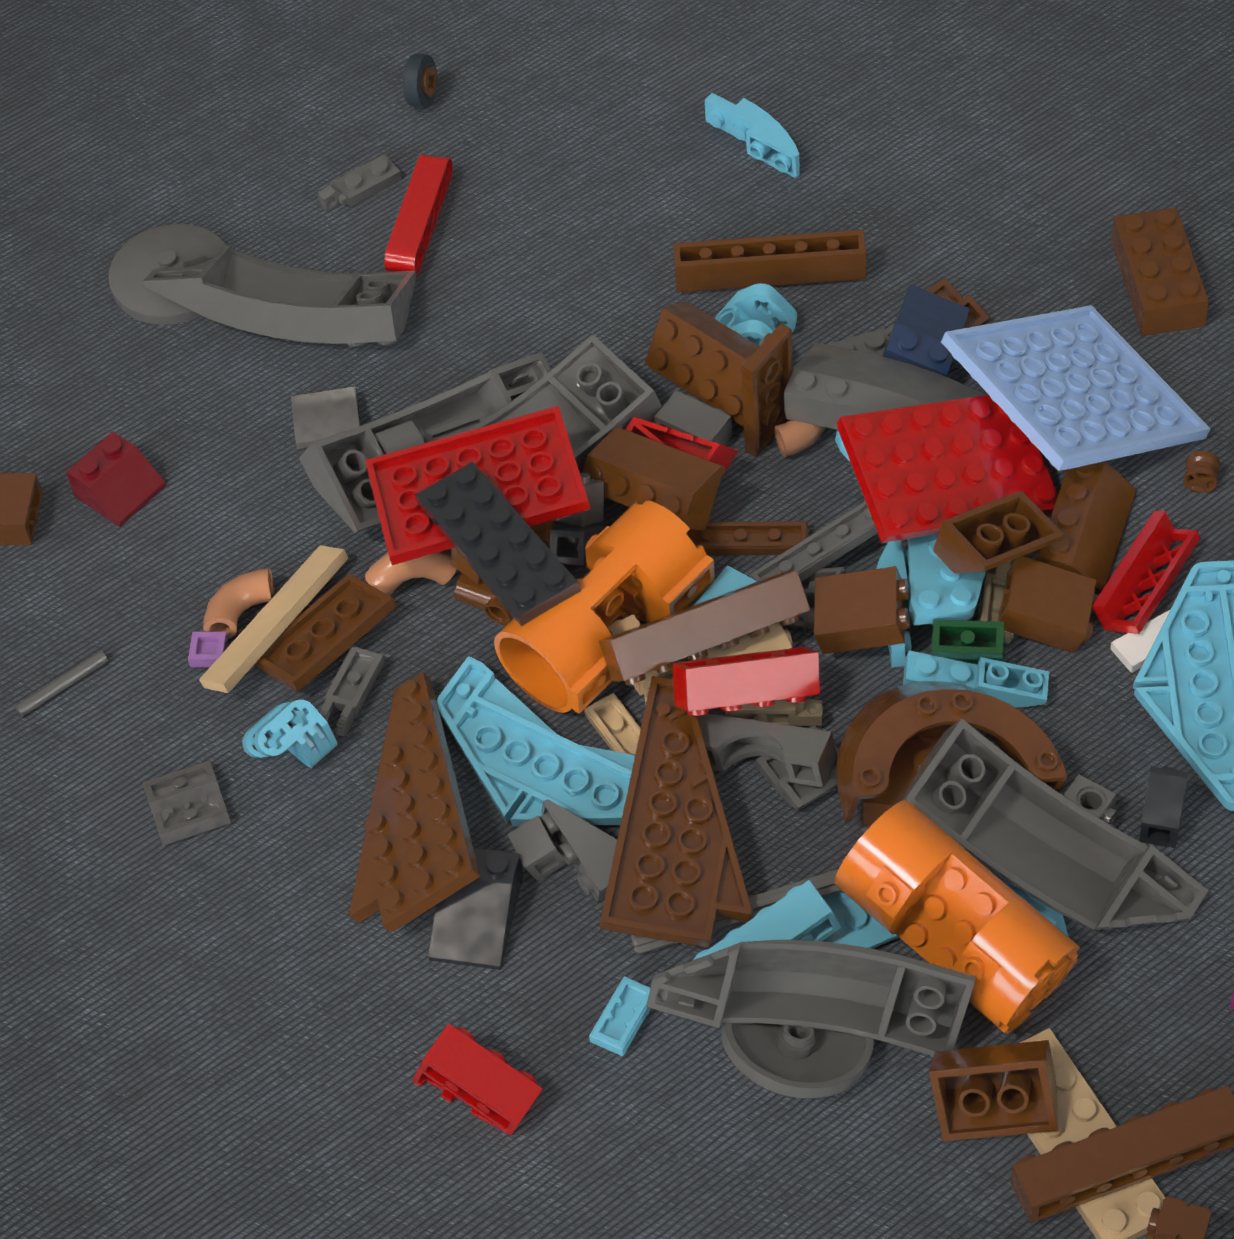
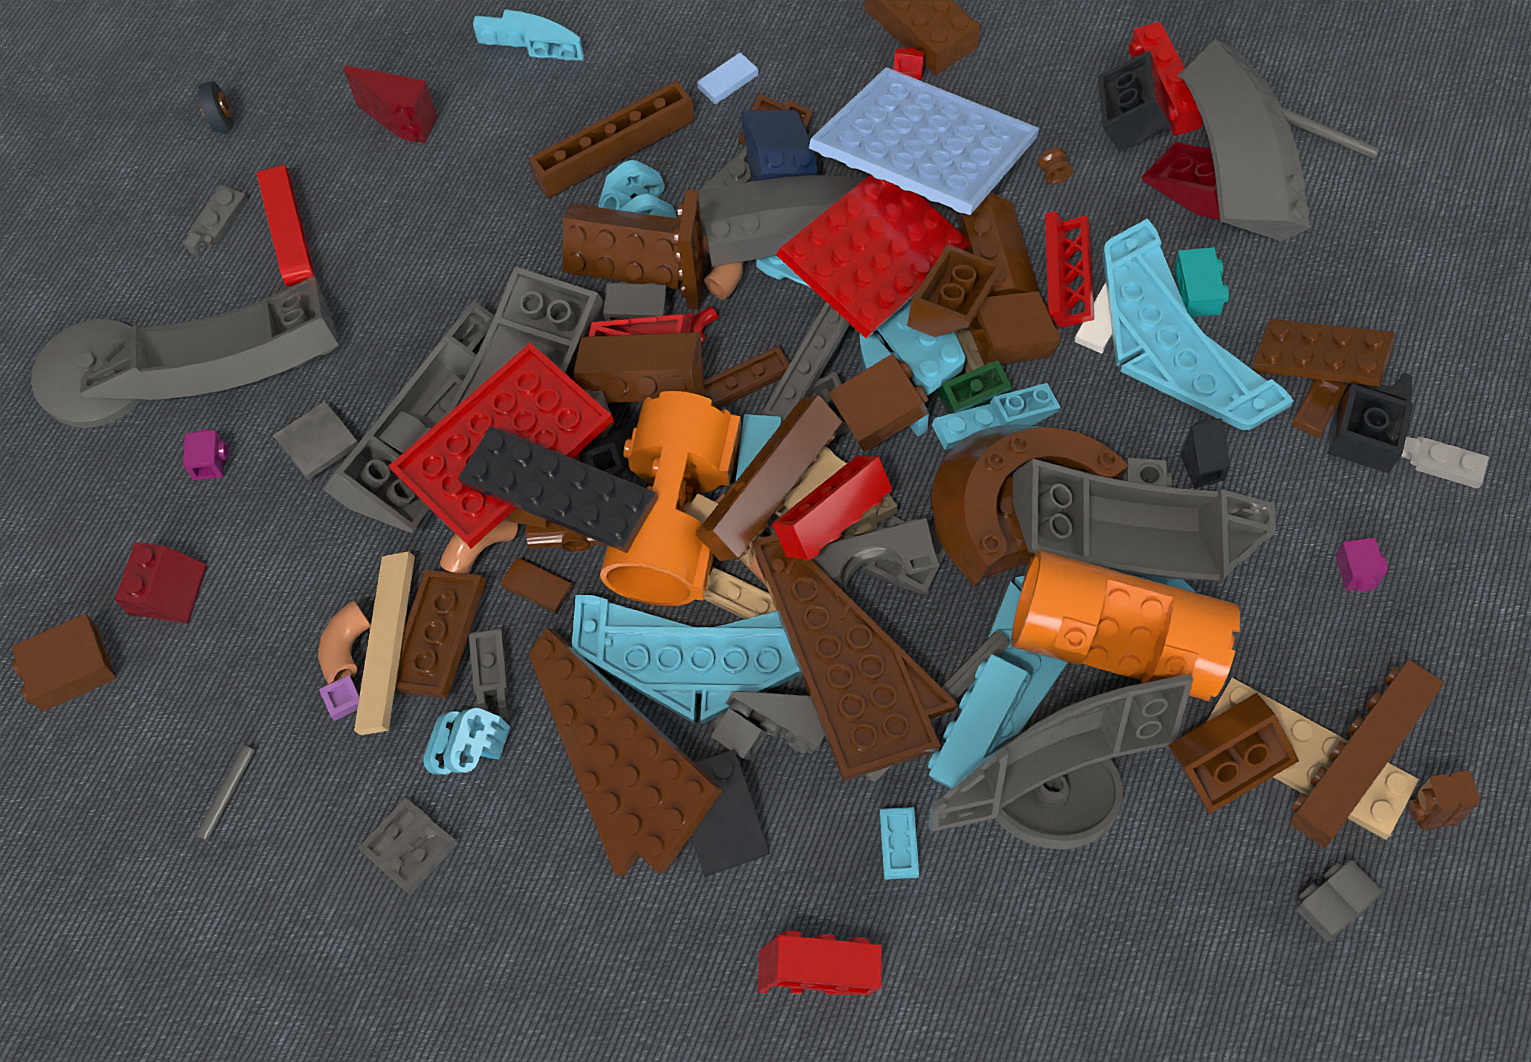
camera: 30 degrees left, 10 degrees up
(220, 386) = (204, 454): none -> magenta brick
(441, 634) = (536, 585): none -> reddish brown tile
(587, 143) = (394, 101): none -> dark red slope
(745, 466) = (703, 319): none -> red arm
(926, 252) = (727, 78): none -> light blue tile
(1117, 310) = (909, 62): none -> red tile

